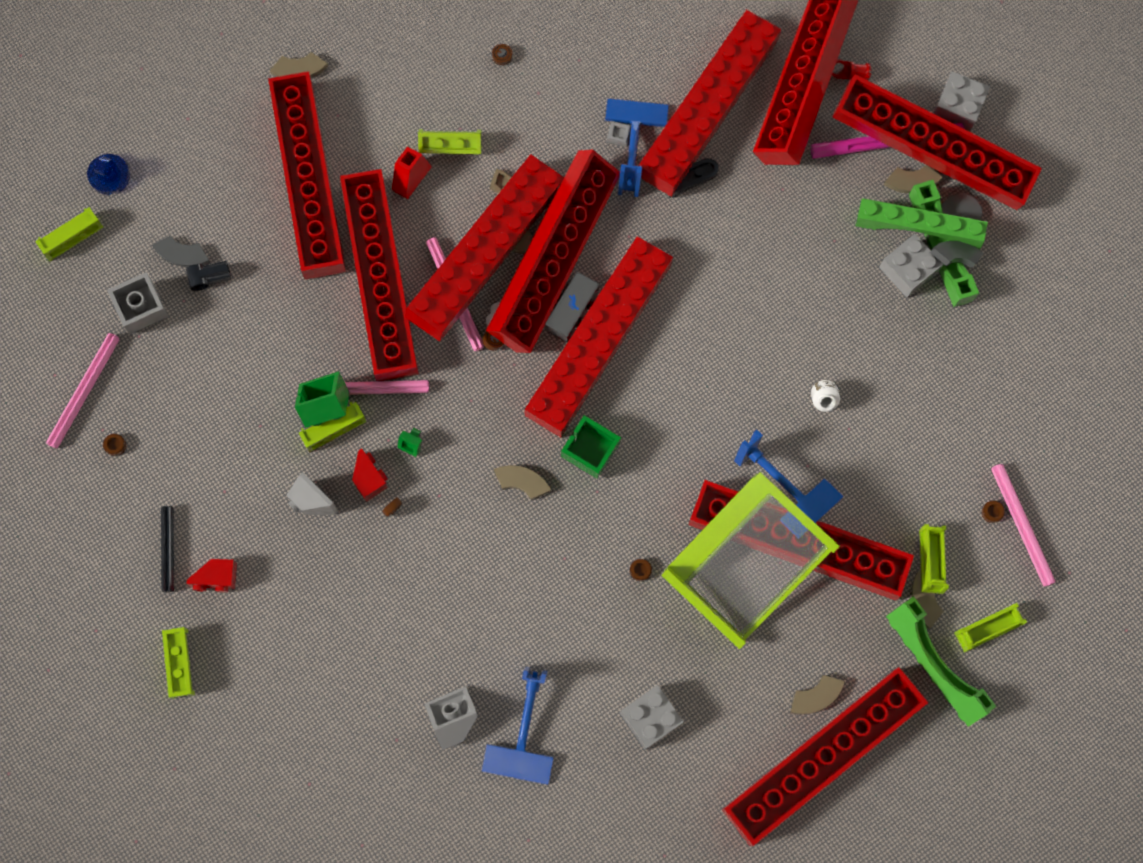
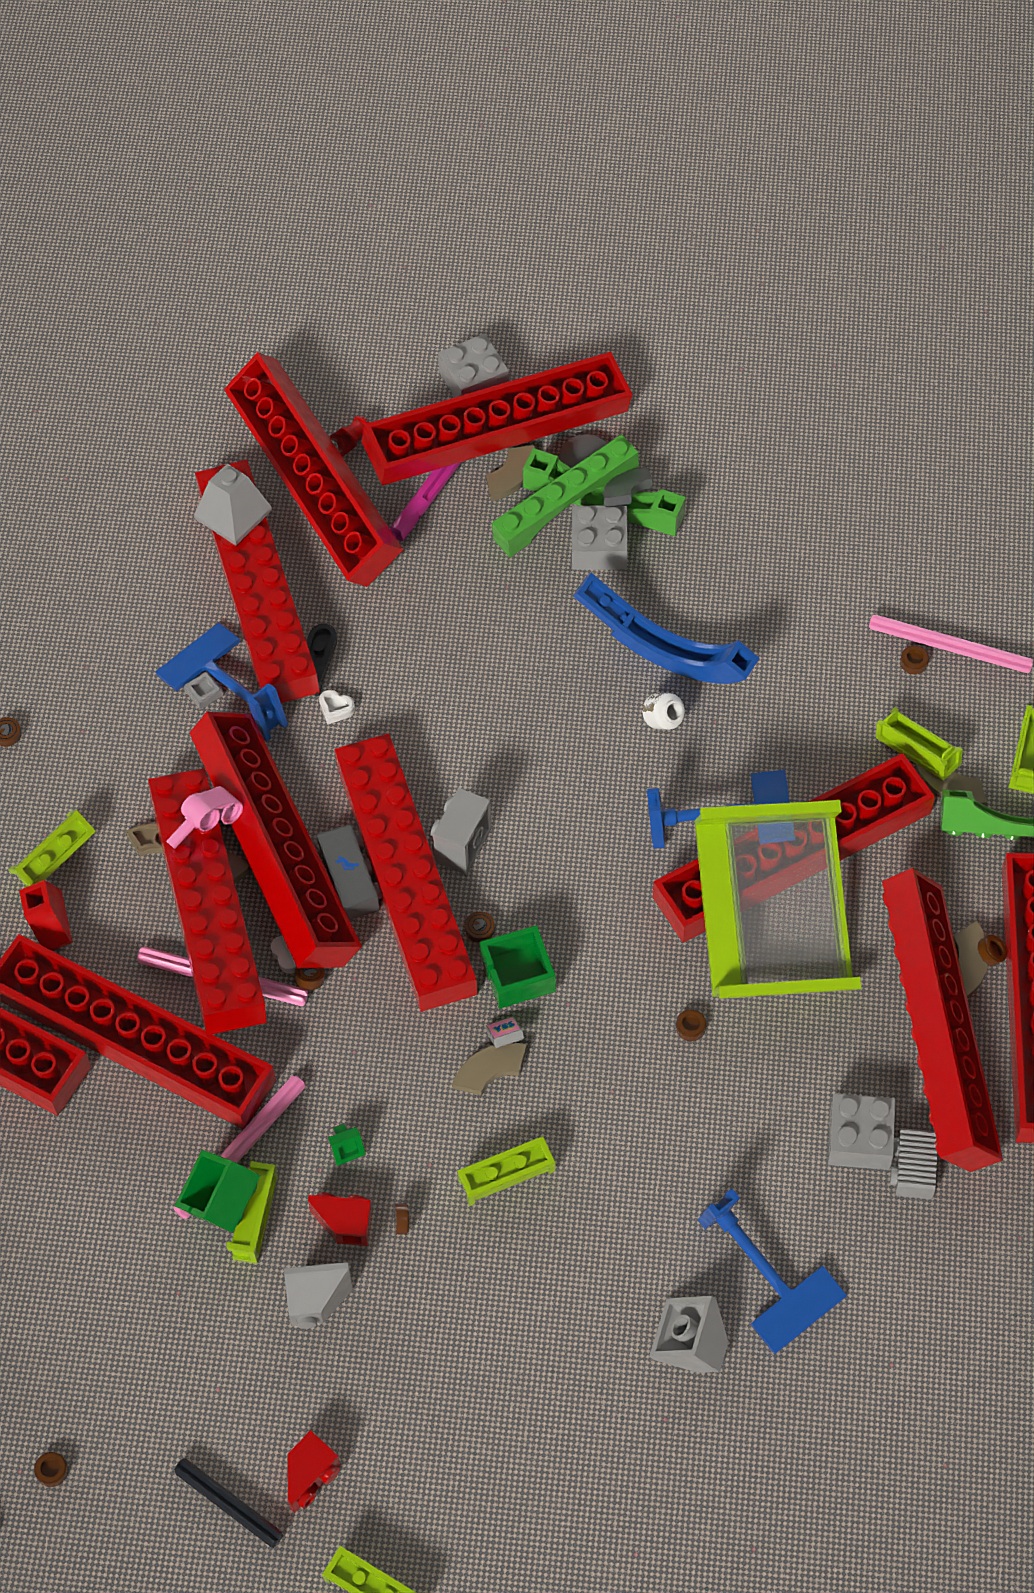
camera: 45 degrees left, 15 degrees down
(465, 539) = (506, 1169): none -> lime container
(529, 202) = (204, 811): none -> bright pink beam
(548, 471) = (504, 1032): none -> tile
(601, 405) = (479, 926): none -> reddish brown tile
(647, 347) = (461, 830): none -> light grey brick
(658, 762) = (915, 1165): none -> light grey brick
(671, 212) = (335, 706): none -> white tile
(738, 48) = (231, 505): none -> light grey slope
(757, 710) = (941, 1022): none -> red brick
(832, 705) = (992, 950): none -> reddish brown tile
(868, 355) = (677, 654): none -> blue arch

